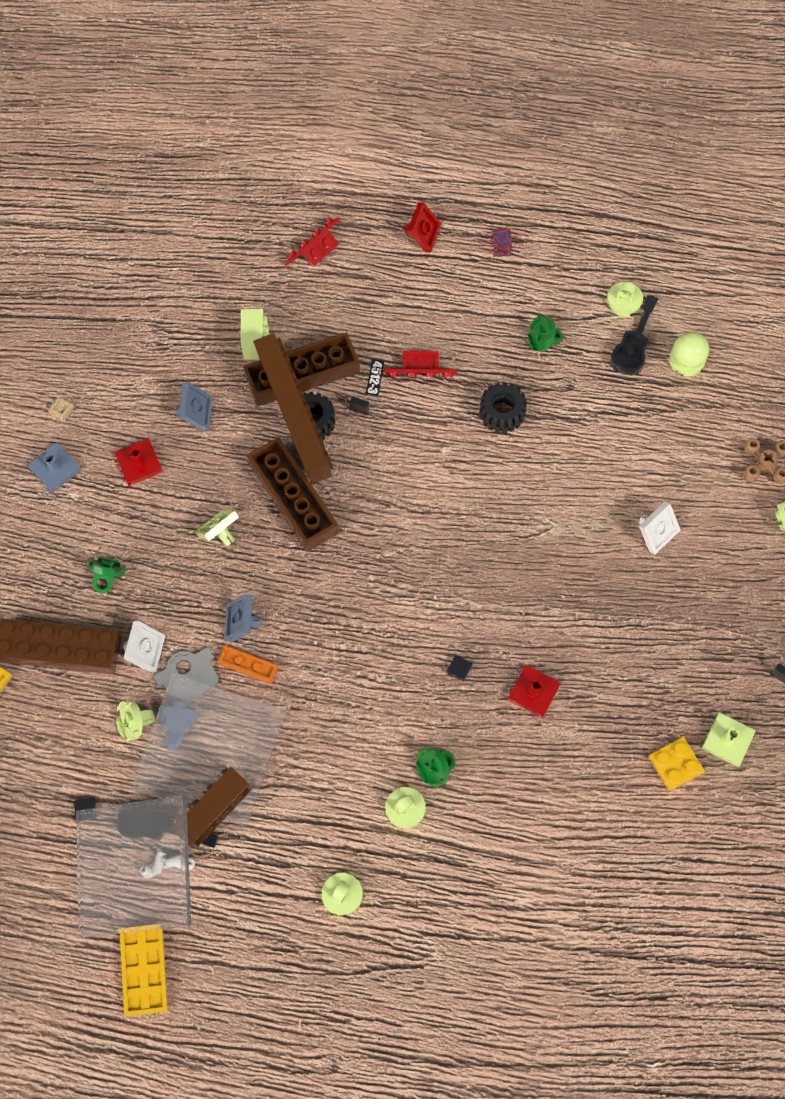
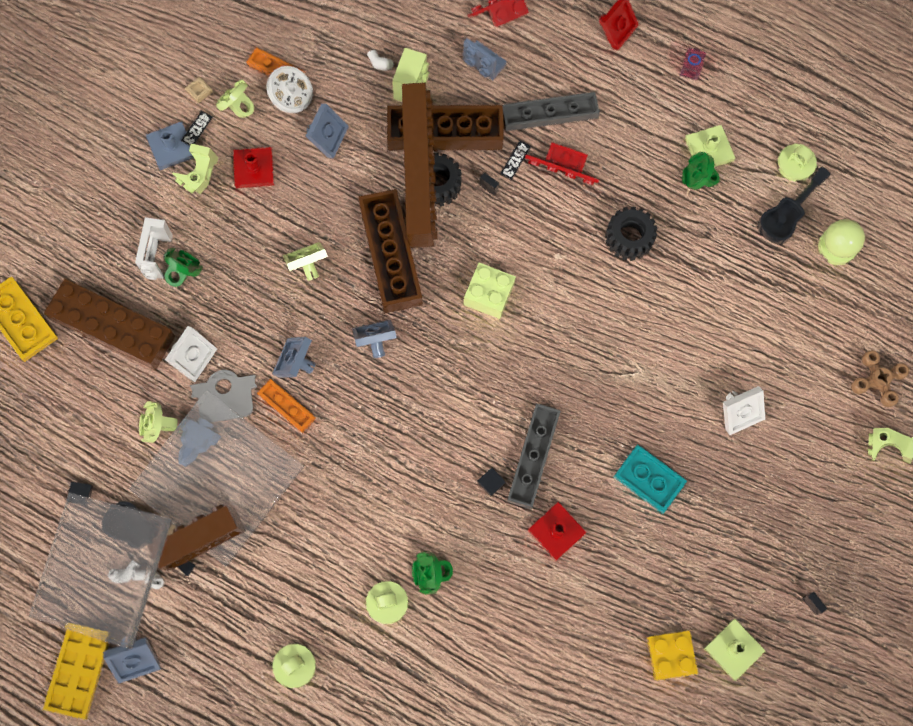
camera: 15 degrees right, 5 degrees up
(69, 548) = (158, 231): none -> white panel
(73, 444) = (197, 128): none -> sticker
(92, 467) = (205, 161): none -> yellowish green tile
(98, 405) = (234, 97): none -> yellowish green tile
(126, 366) = (266, 62): none -> orange tile
(146, 381) = (289, 89): none -> white shield
(192, 941) = (133, 662): none -> sand blue tile
(219, 331) = (378, 62): none -> white arm
(306, 574) = (374, 335): none -> sand blue tile
(313, 298) = (482, 59): none -> sand blue bracket
(391, 324) = (550, 111): none -> dark grey piece
(395, 499) = (489, 290): none -> yellowish green brick
(489, 632) = (533, 456): none -> dark grey piece
(544, 304) = (712, 142): none -> yellowish green tile
(599, 616) = (650, 479): none -> teal tile

